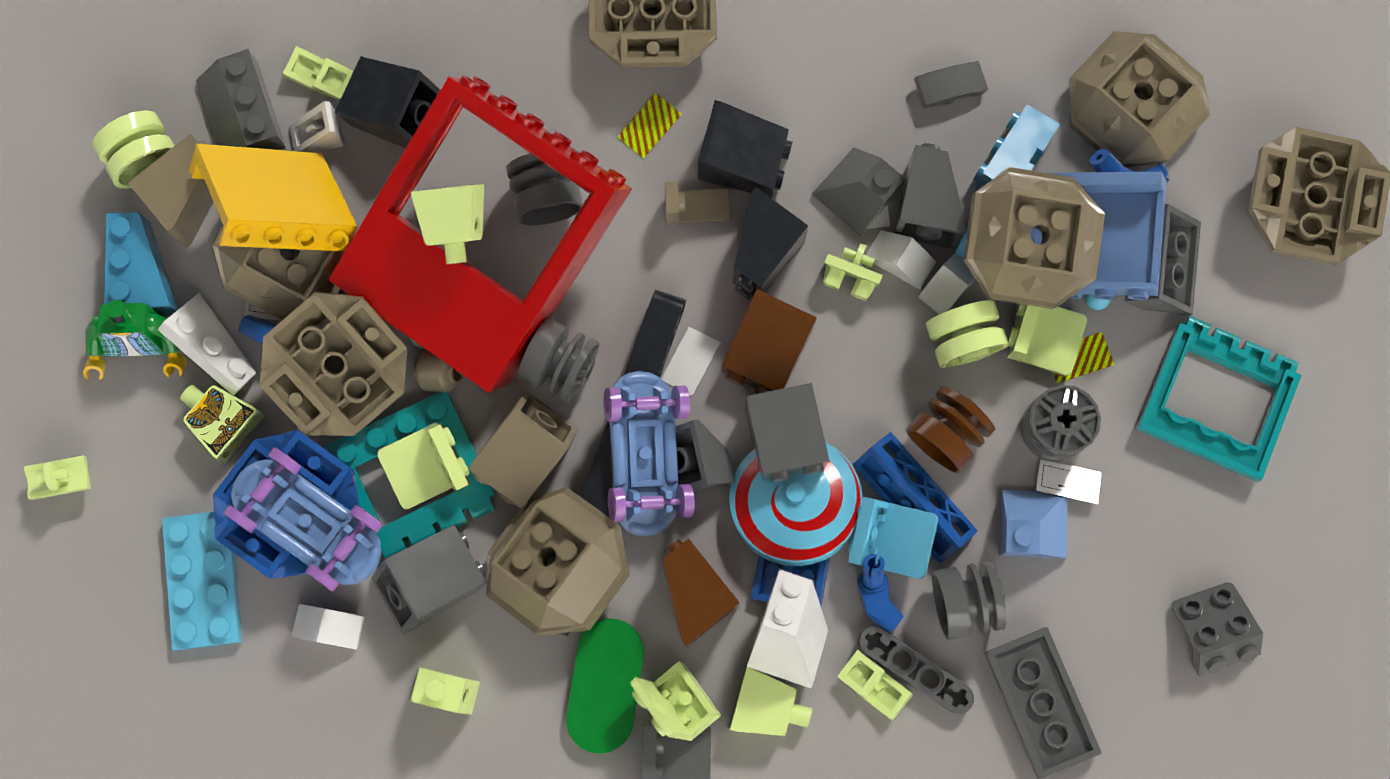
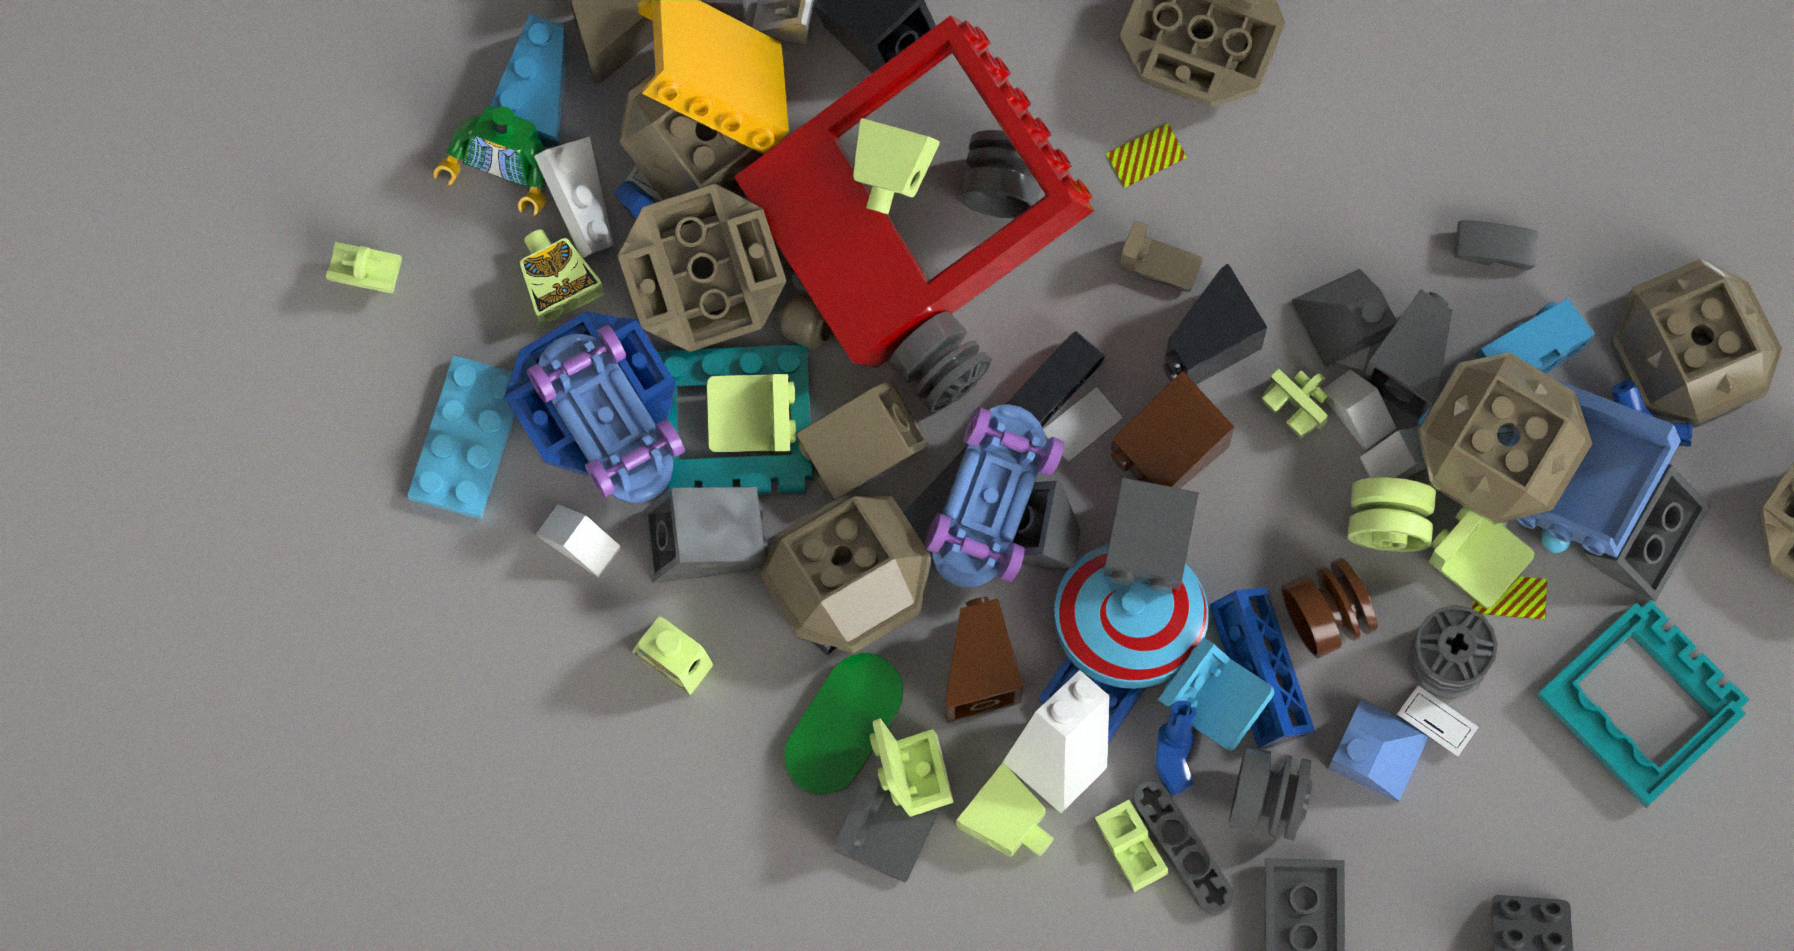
camera: 25 degrees right, 5 degrees down
(743, 151) = (1234, 222): black slope -> none

